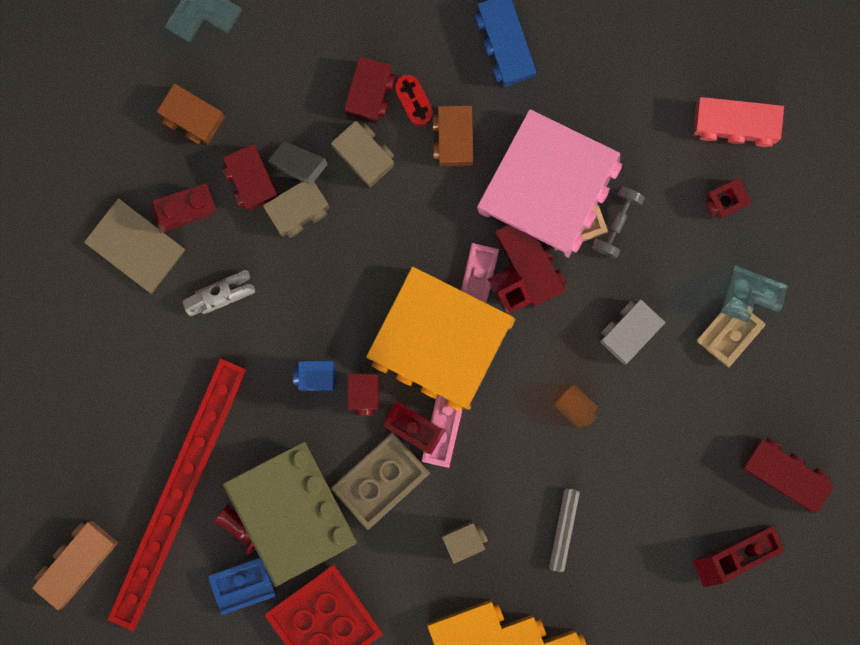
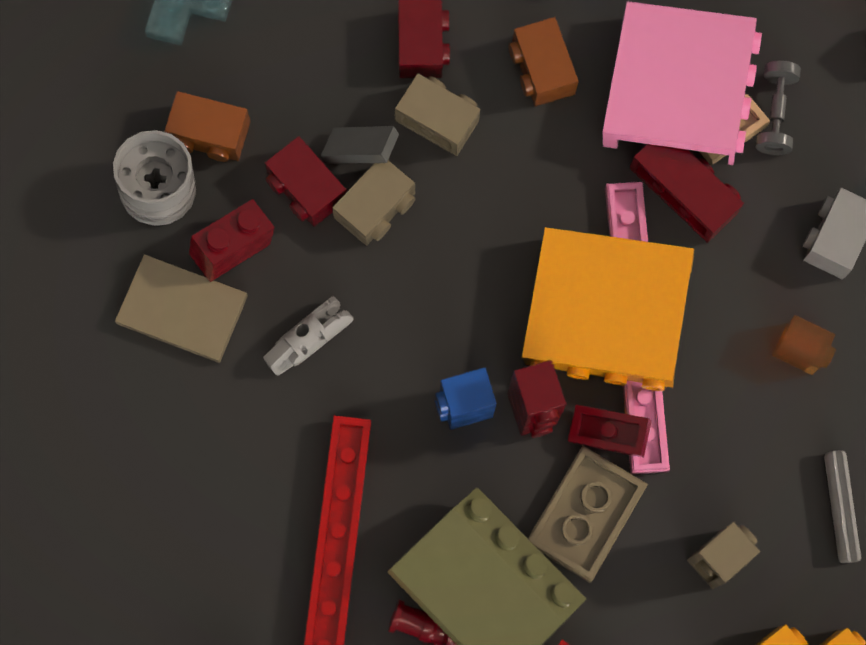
camera: 20 degrees left, 10 degrees down
(133, 131) = (151, 159): none -> light grey wheel
(420, 97) = (485, 30): red beam -> none
(510, 290) = (675, 222): dark red brick -> none

